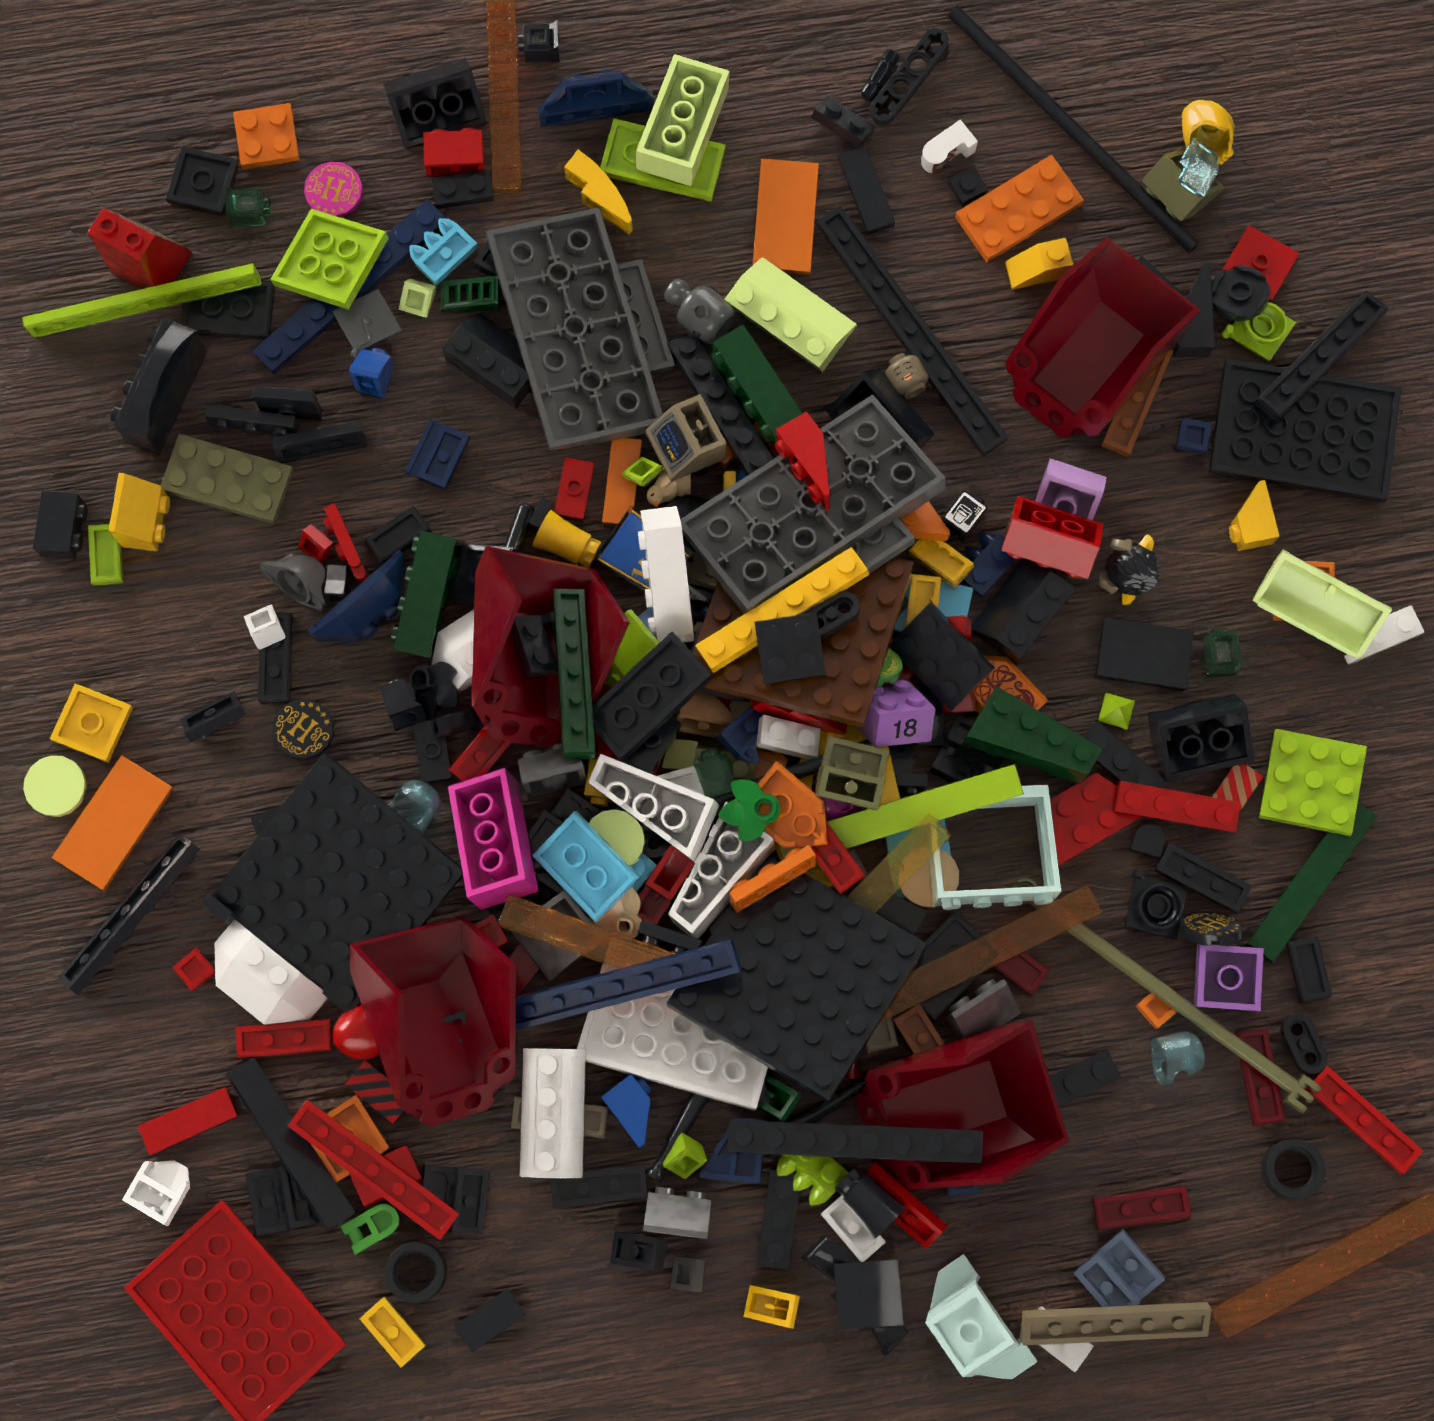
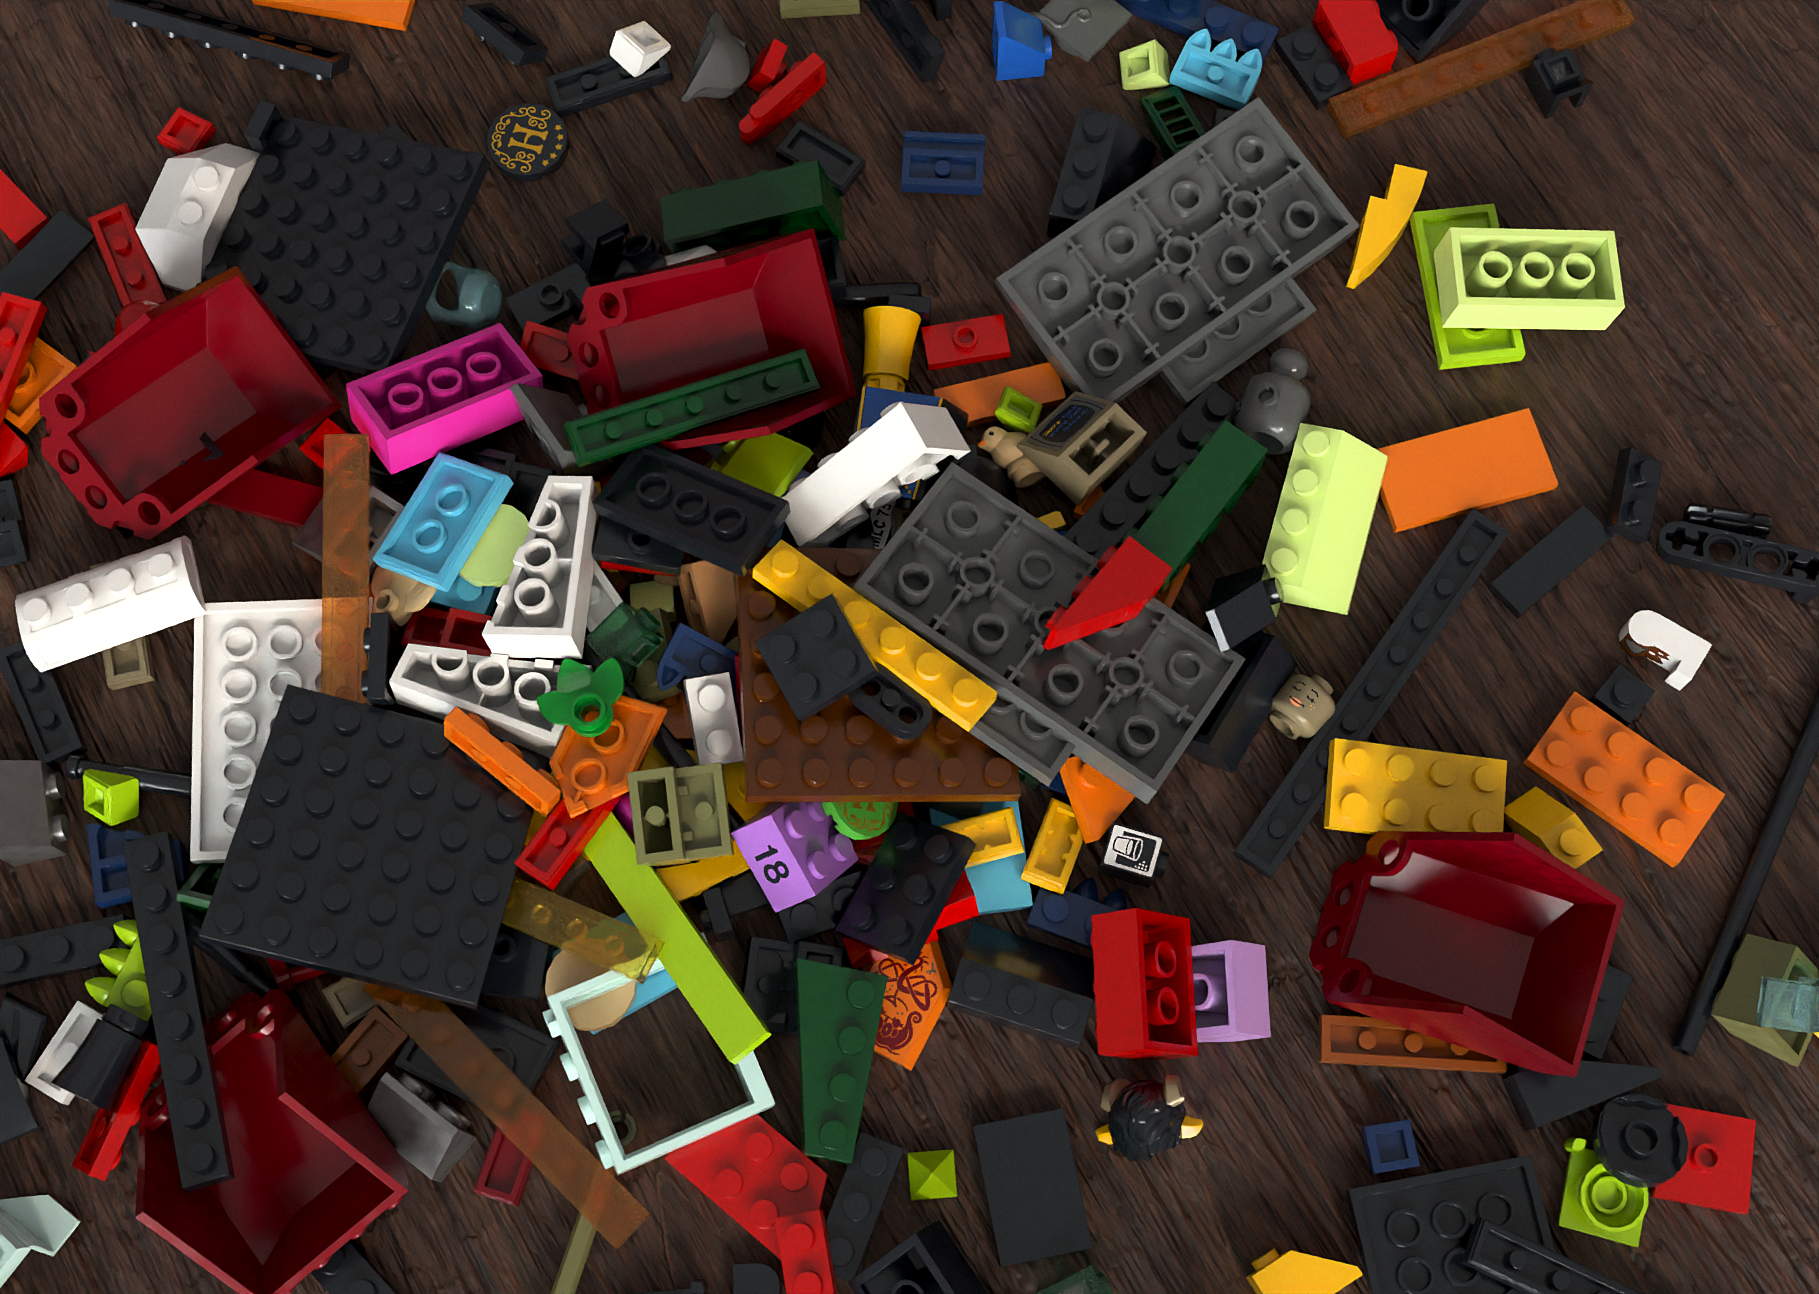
camera: 75 degrees right, 5 degrees down
(336, 583) = (725, 109): flat silver piece -> none
(365, 606) = (705, 147): dark blue wedge -> none
(534, 644) = (719, 349): black plate -> none
(594, 97) = (1507, 164): dark blue wedge -> none
(627, 984) = (295, 622): dark blue plate -> none
(631, 1106) = (151, 705): blue slope -> none
(836, 381) = (1243, 605): none -> black slope
(987, 332) = (1412, 790): none -> yellow plate

